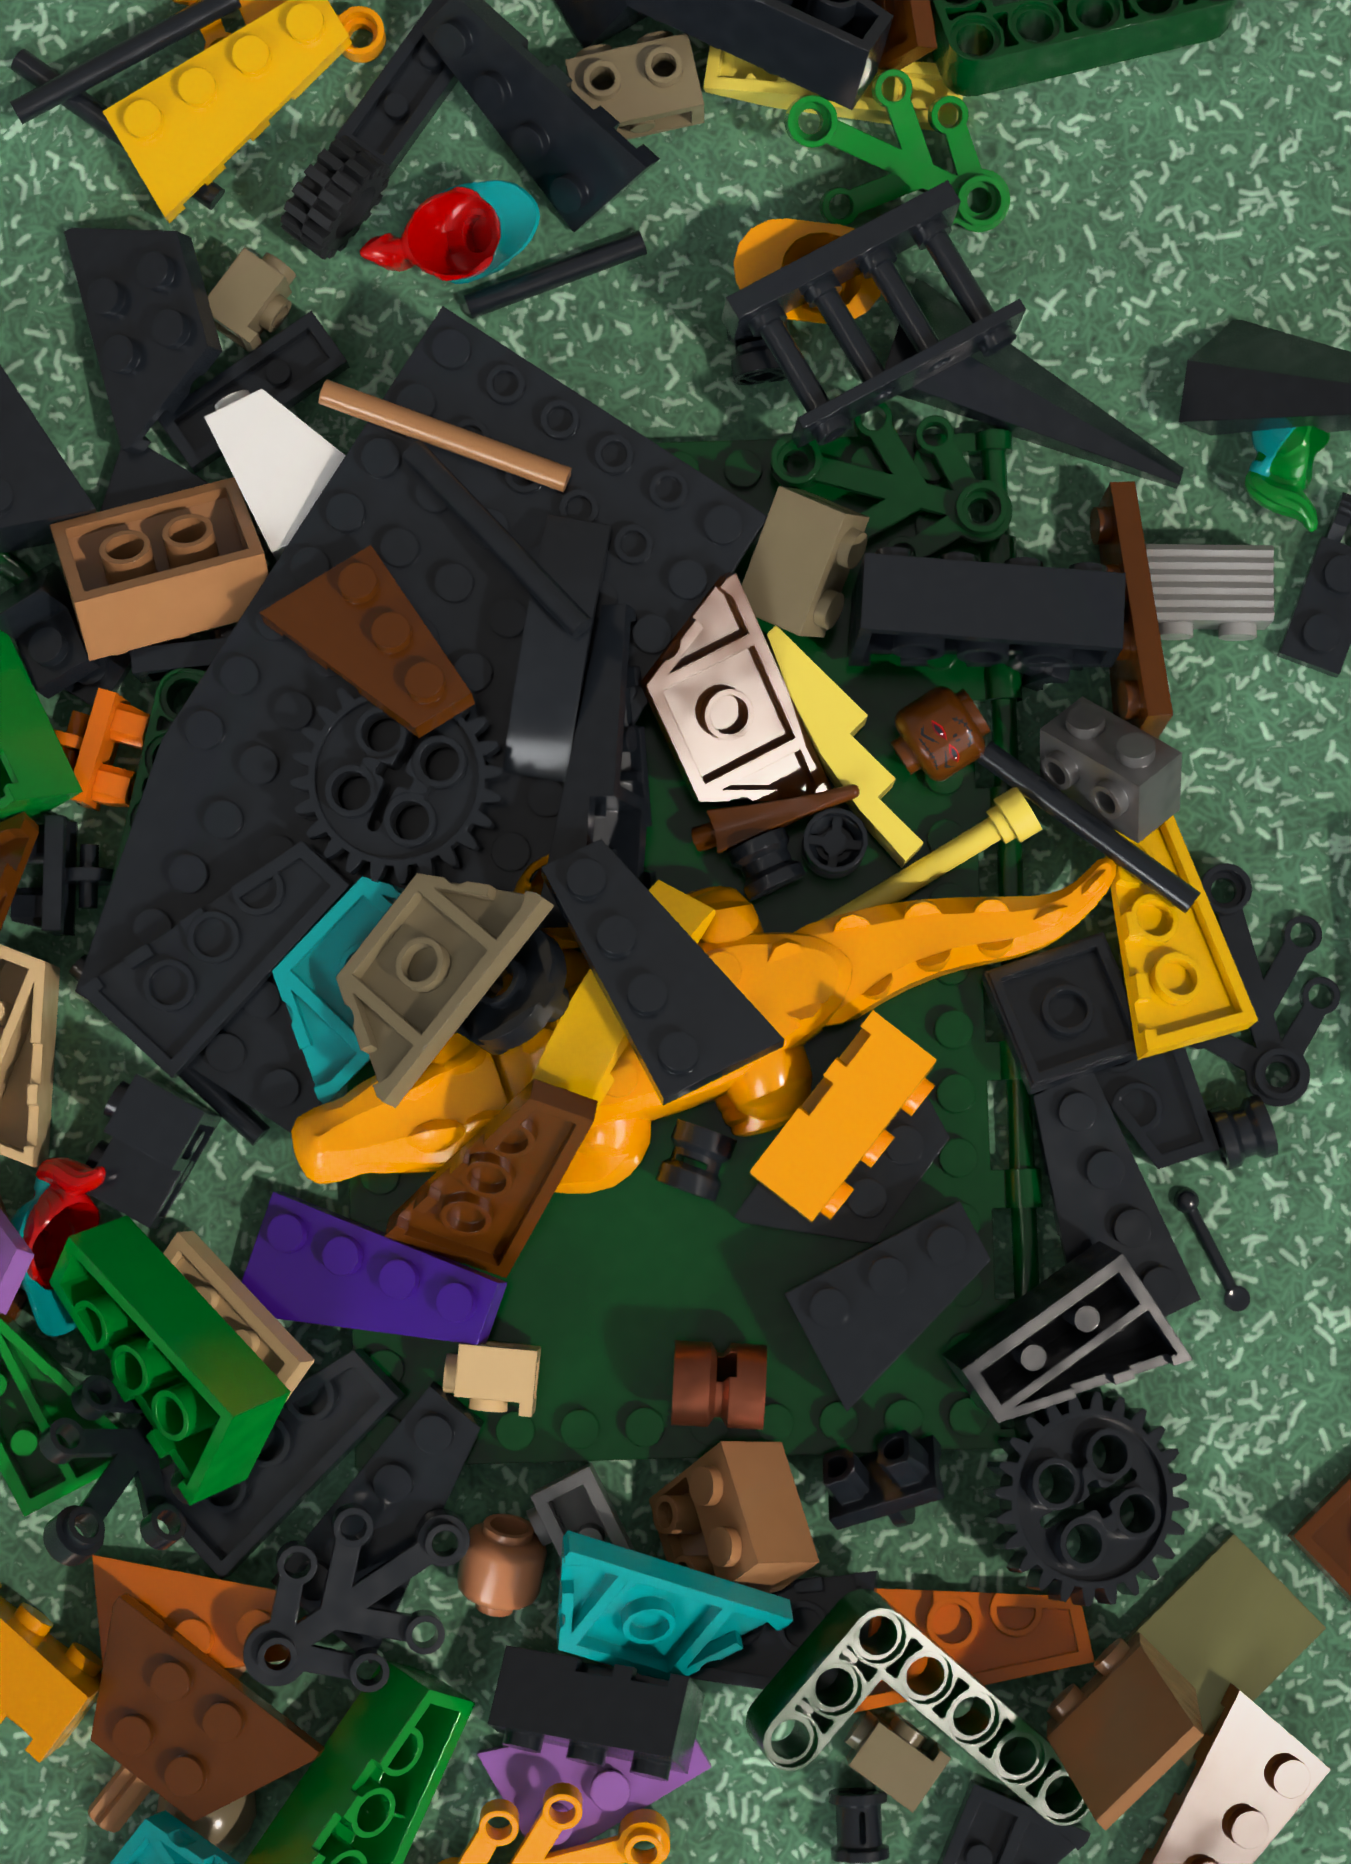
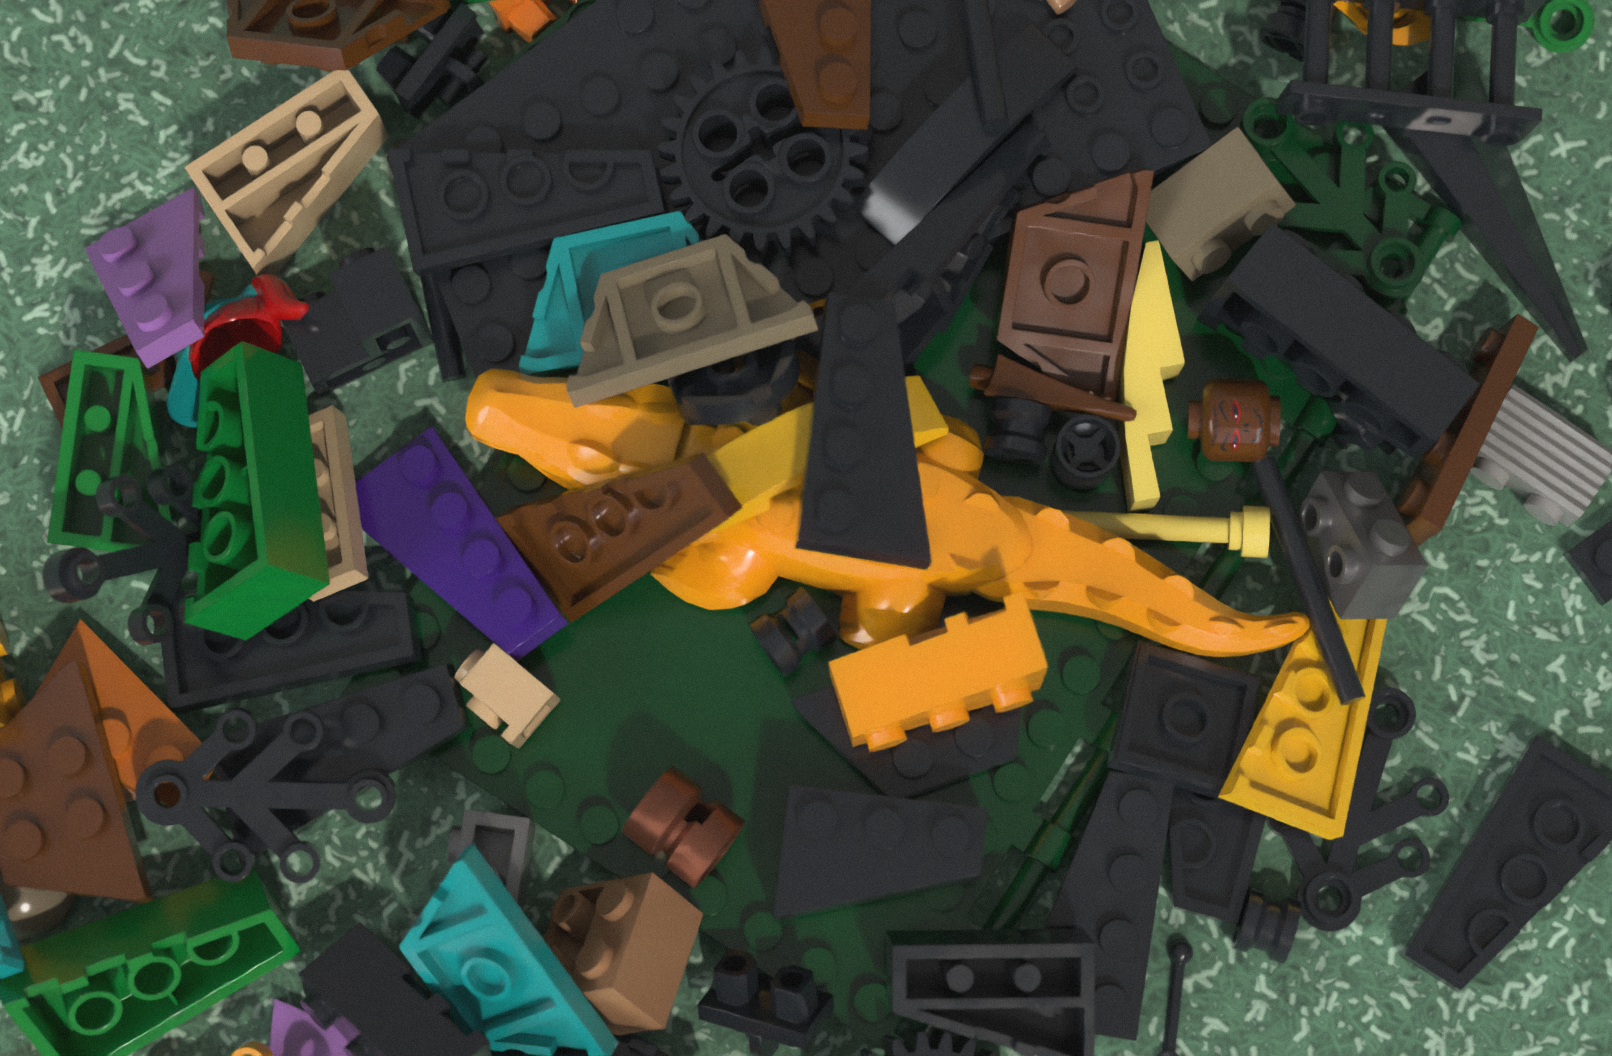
camera: 30 degrees right, 5 degrees down
(502, 1565) = (403, 856): nougat head -> none

